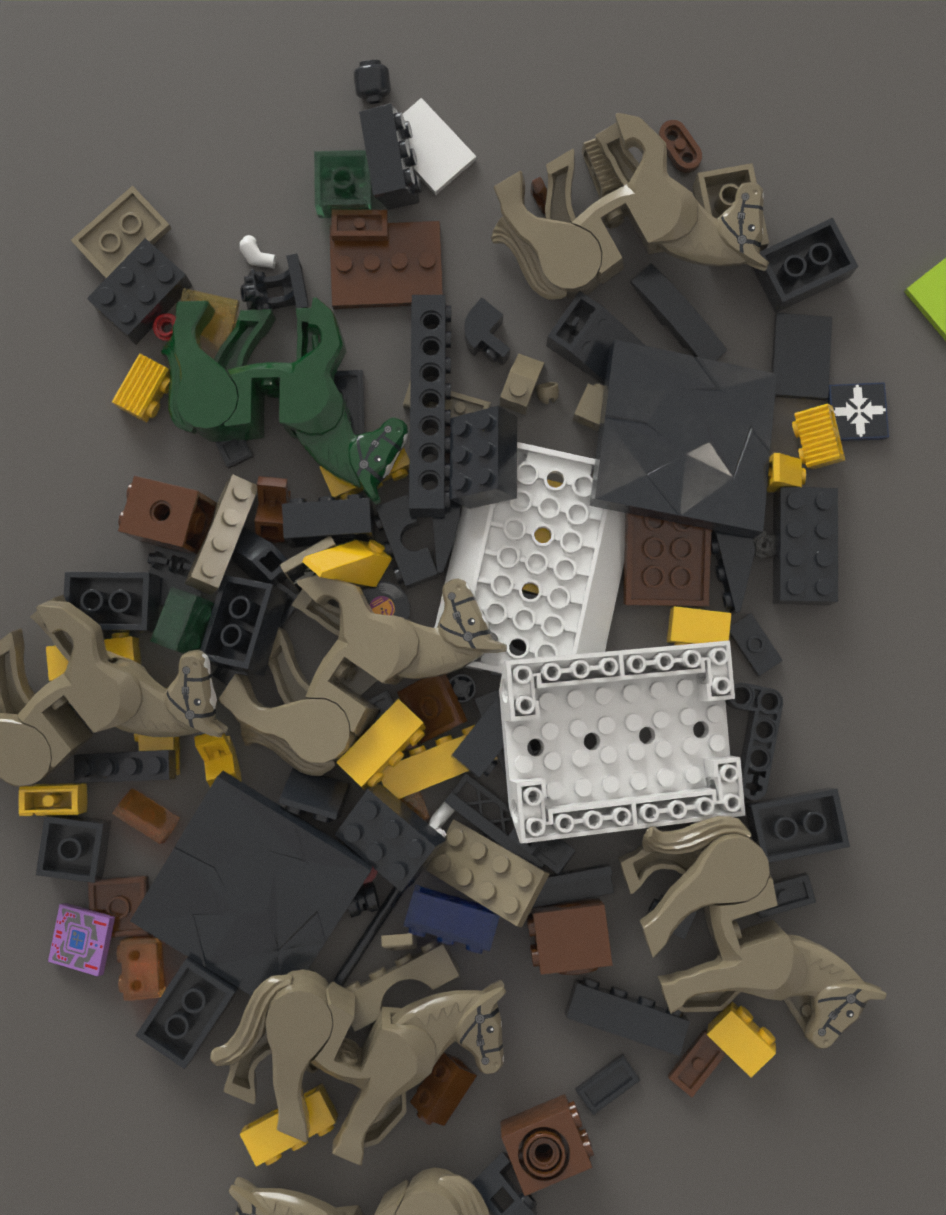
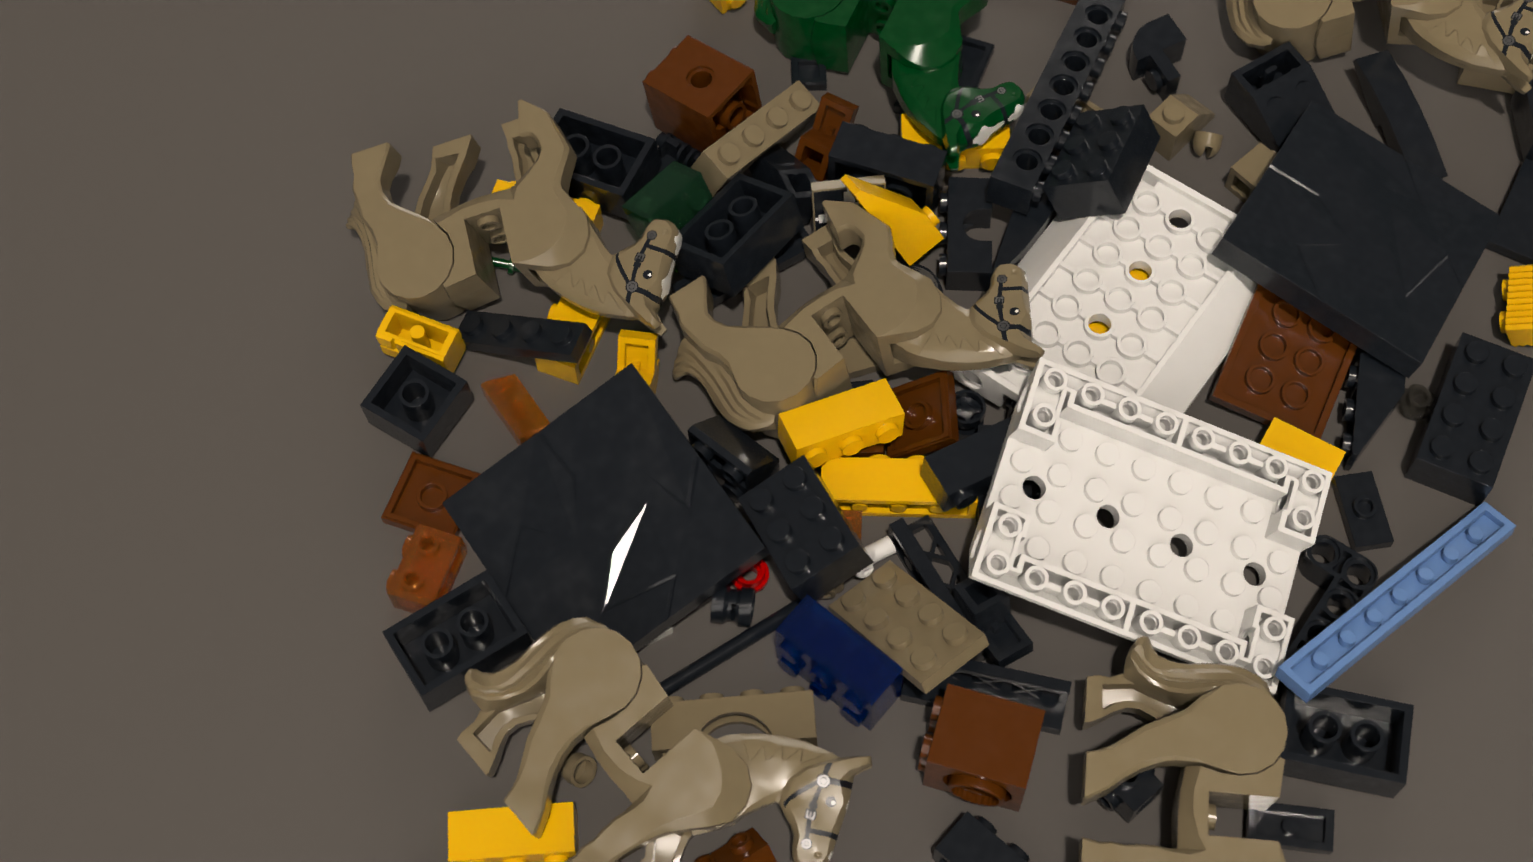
camera: 25 degrees right, 20 degrees down
(81, 939) = (371, 510): medium lavender tile -> none
(399, 942) = (761, 654): dark tan tile -> none
(785, 472) = (1470, 315): yellow slope -> none
(801, 714) = (1394, 602): none -> medium blue plate

